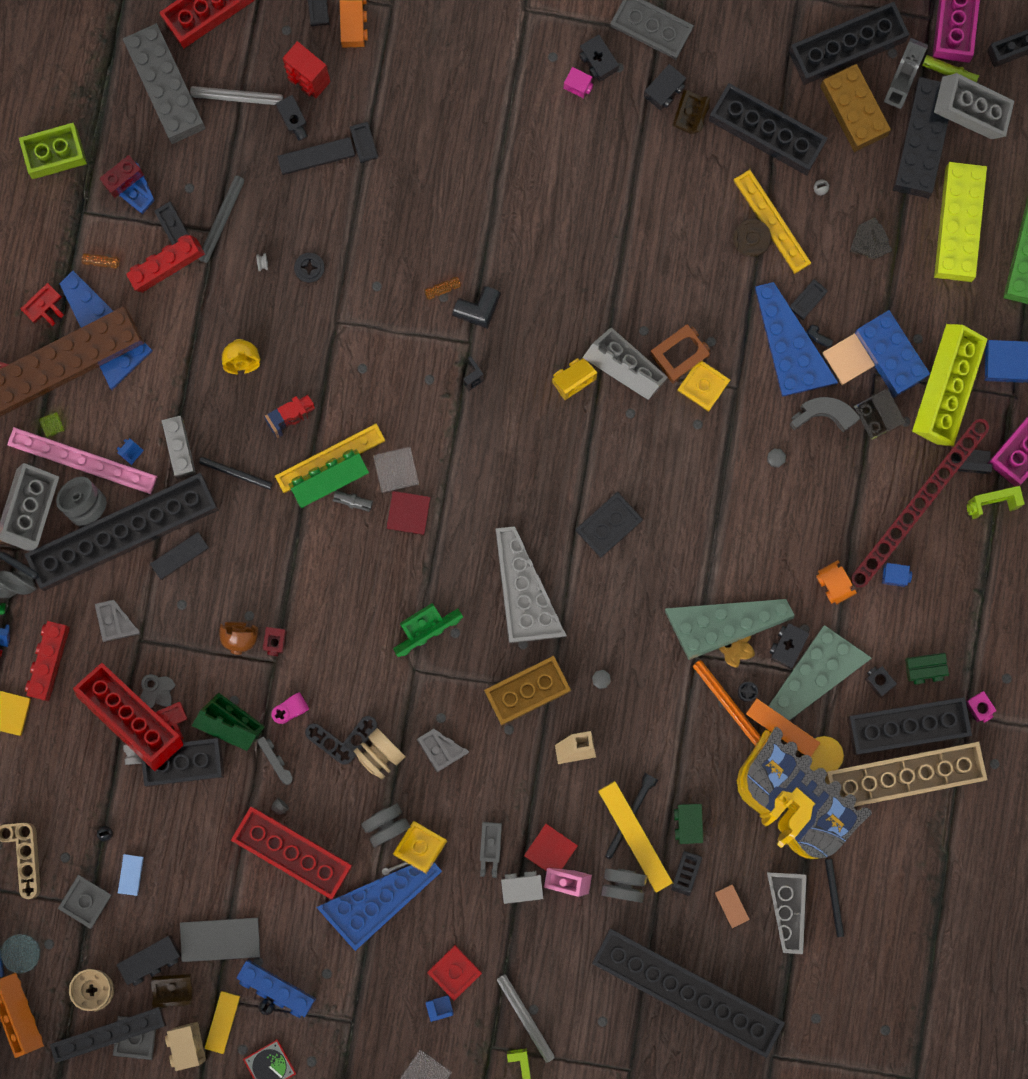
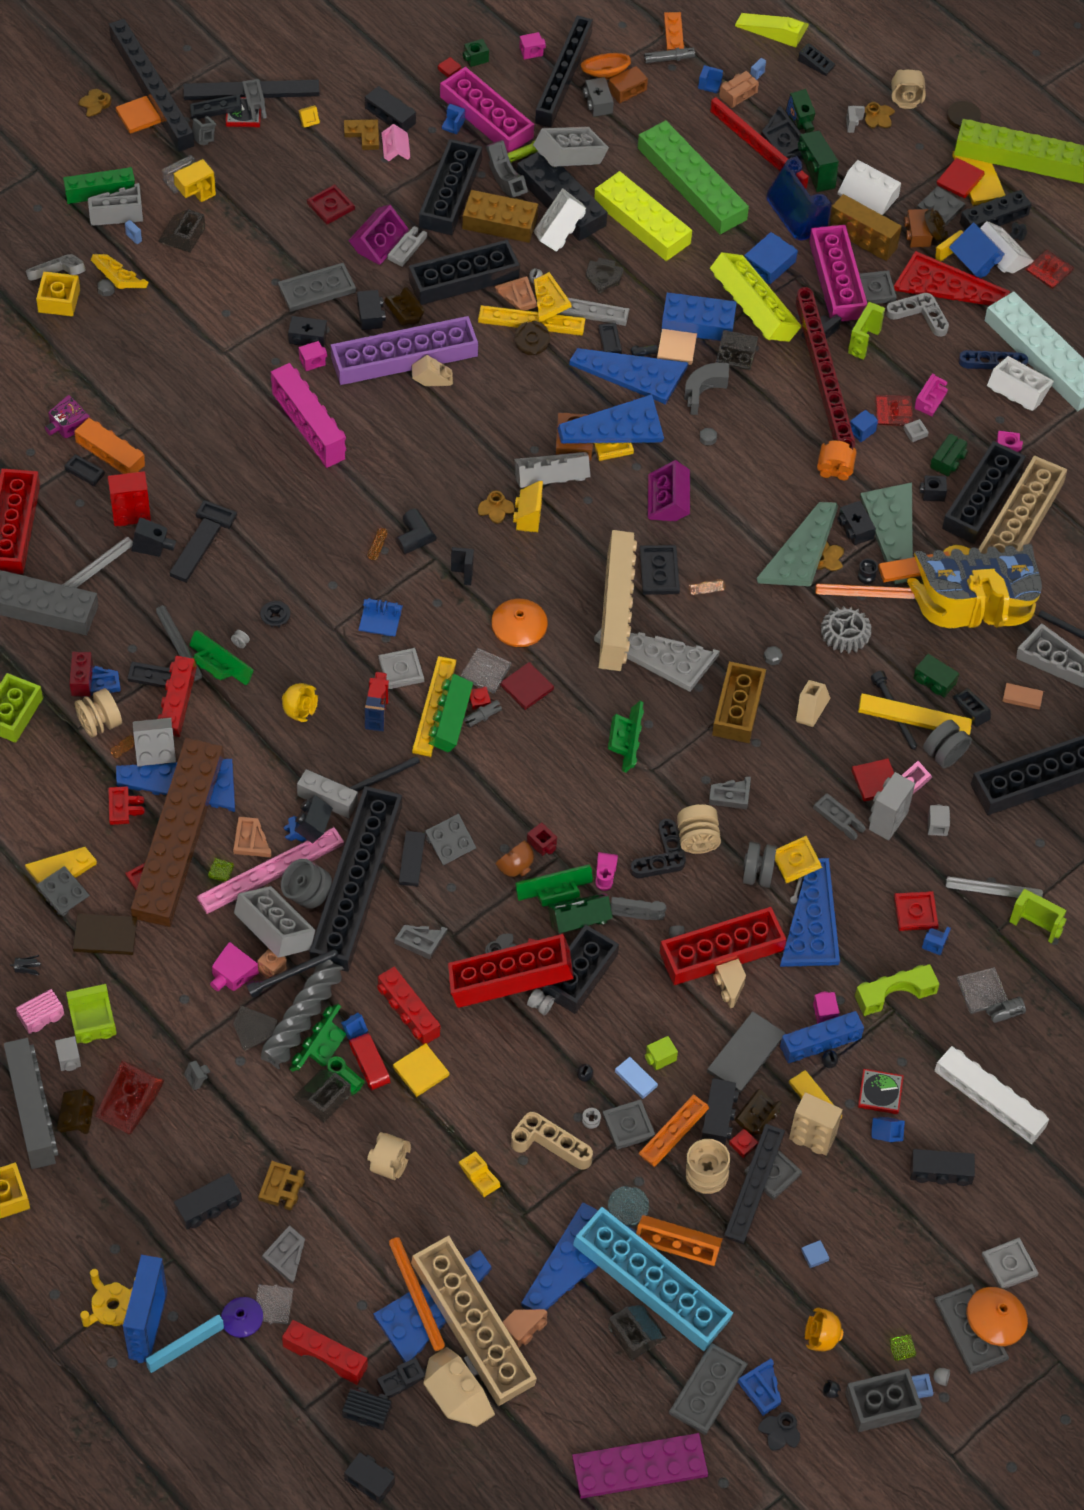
camera: 55 degrees left, 25 degrees down
(63, 867) = (585, 1119): none -> light grey bush
(94, 423) = (250, 838): none -> nougat wing
(100, 219) = (94, 714): none -> tan wheel
(104, 940) = (674, 1130): none -> orange tile
(108, 283) = (154, 741): none -> light grey brick
(141, 997) = (743, 1143): none -> red plate
(143, 457) = (313, 818): none -> black brick
(163, 878) = (661, 1053): none -> lime brick
(218, 571) = (450, 839): none -> dark grey hinge
(225, 262) = (218, 660): none -> green bracket
(241, 686) = (555, 886): none -> green bracket
(270, 881) = (731, 980): none -> tan slope
(306, 970) = (825, 1006): none -> dark pink brick
(342, 404) = (401, 668): none -> light grey tile
(366, 486) = (479, 697): none -> red plate
(375, 349) = (380, 617): none -> blue hinge
(388, 1024) = (919, 982): none -> lime arch
(464, 471) = (519, 630): none -> orange dish
(511, 132) = (308, 415): none -> dark pink brick
(542, 518) = (617, 600): none -> tan brick
(551, 928) = (938, 820): none -> light grey brick
(555, 351) = (496, 509): none -> pearl gold plate
(623, 576) = (707, 587): none -> clear orange axle
(644, 150) = (399, 349): none -> medium lavender brick
(644, 190) = (431, 372): none -> tan slope
(657, 721) = (846, 621): none -> light grey gear
(688, 473) = (669, 492): none -> magenta slope
(724, 383) = (624, 423): none -> blue wing
(749, 29) = (379, 234): none -> magenta slope
(757, 60) = (407, 246): none -> light grey hinge
(788, 189) = (518, 293): none -> nougat wing
(804, 219) = (550, 297): none -> yellow wing
(826, 262) = (597, 311): none -> light grey tile
(886, 162) = (559, 220): none -> white slope
(929, 620) = (916, 430): none -> light grey plate
(939, 585) = (894, 410): none -> clear red piece
(978, 606) = (931, 395): none -> dark pink hinge

